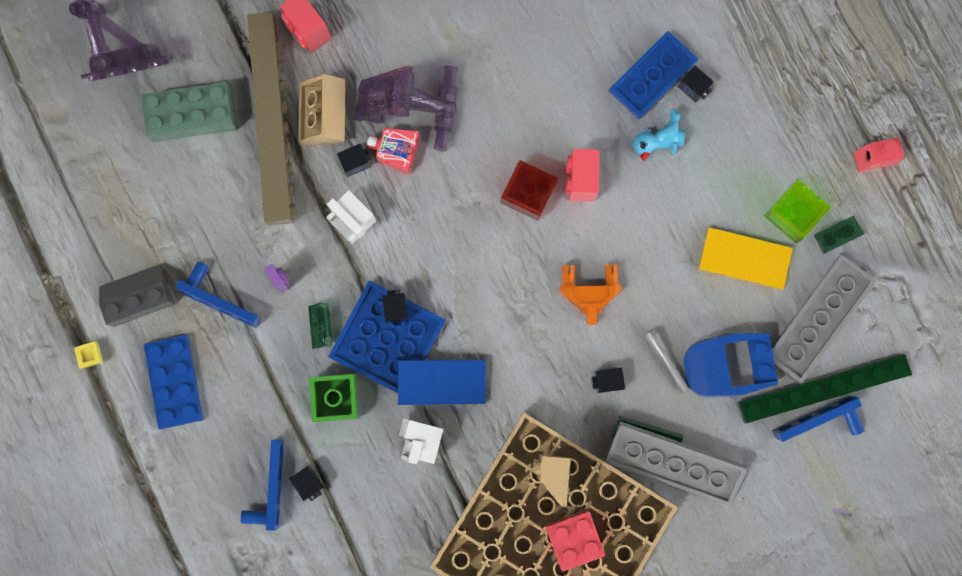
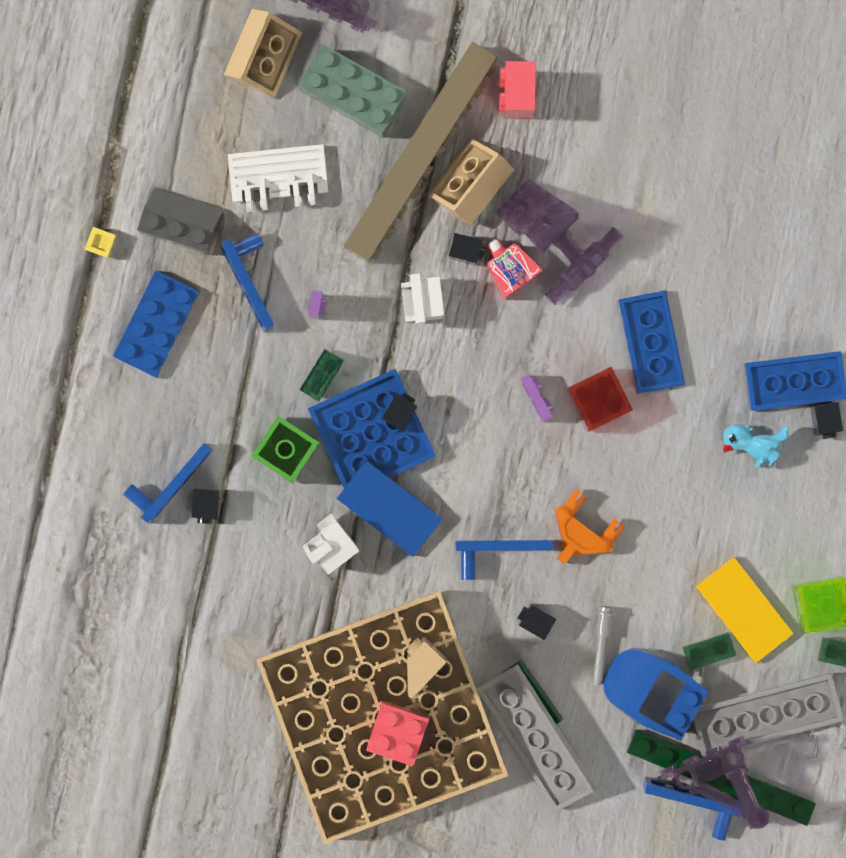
camera: 35 degrees right, 5 degrees up
(106, 134) = (263, 53): none -> tan slope
(180, 209) = (277, 172): none -> white hinge
(476, 220) = (541, 405): none -> medium lavender plate
(520, 367) = (469, 547): none -> blue piece
(533, 125) = (651, 342): none -> blue tile
(583, 175) = (657, 424): coral brick -> none
(744, 306) = (709, 651): none -> clear green plate
(817, 382) = (714, 766): none -> clear purple plate

